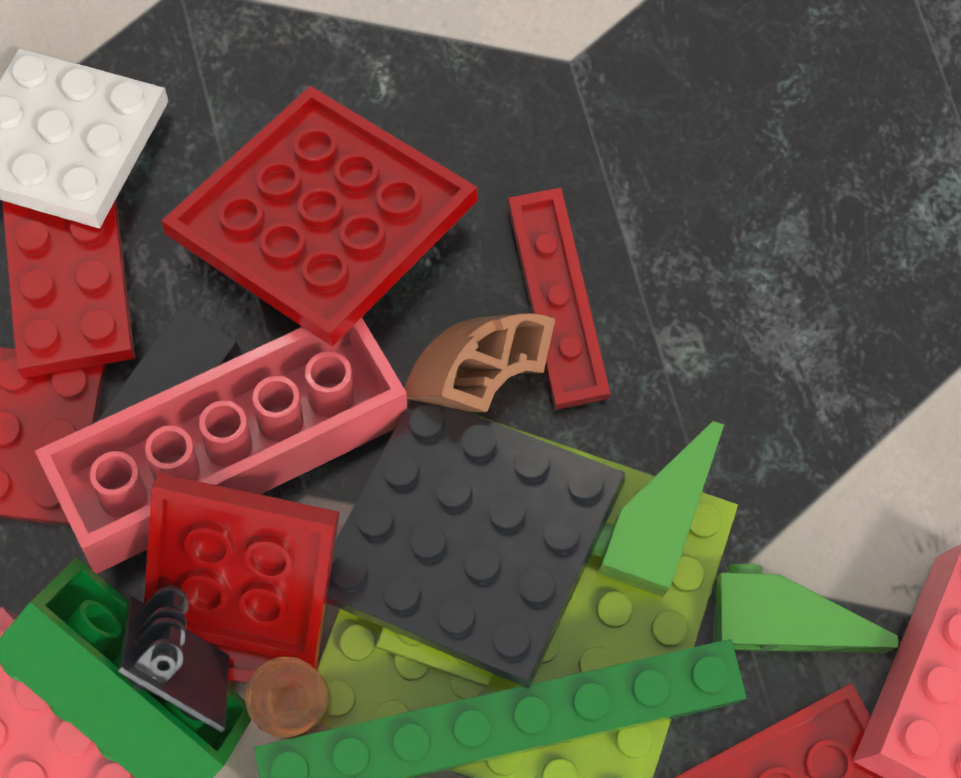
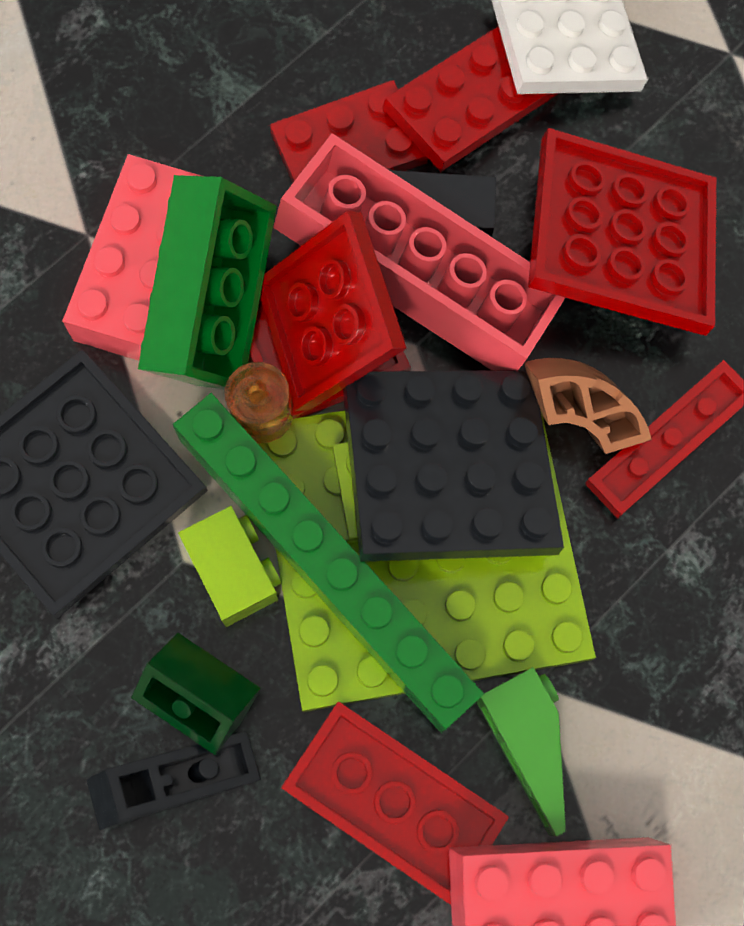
camera: 60 degrees right, 0 degrees up
(171, 660) = (240, 305): black hinge -> none
(655, 523) = (543, 595): bright green slope -> none

